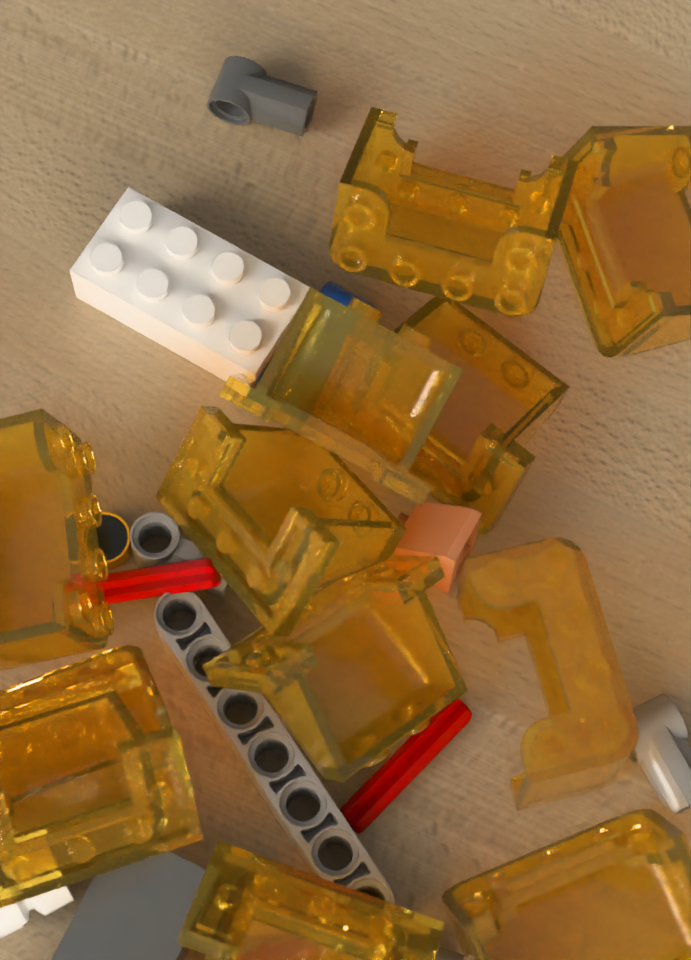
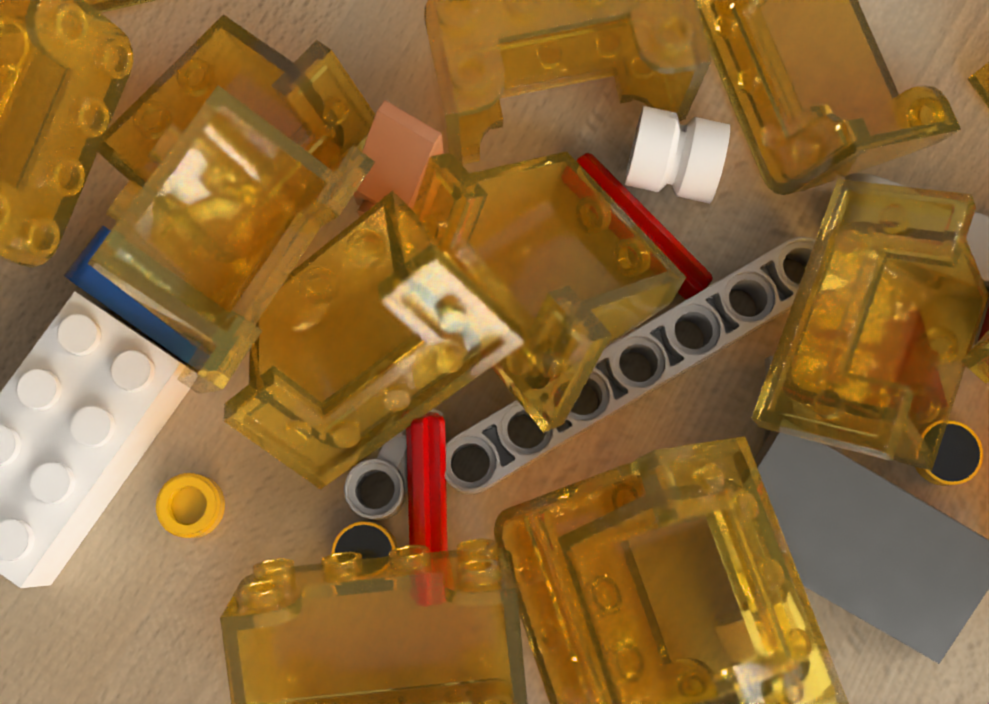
camera: 85 degrees left, 10 degrees up
(142, 398) = (190, 505): none -> yellow tile
(472, 788) = (677, 154): none -> white wheel

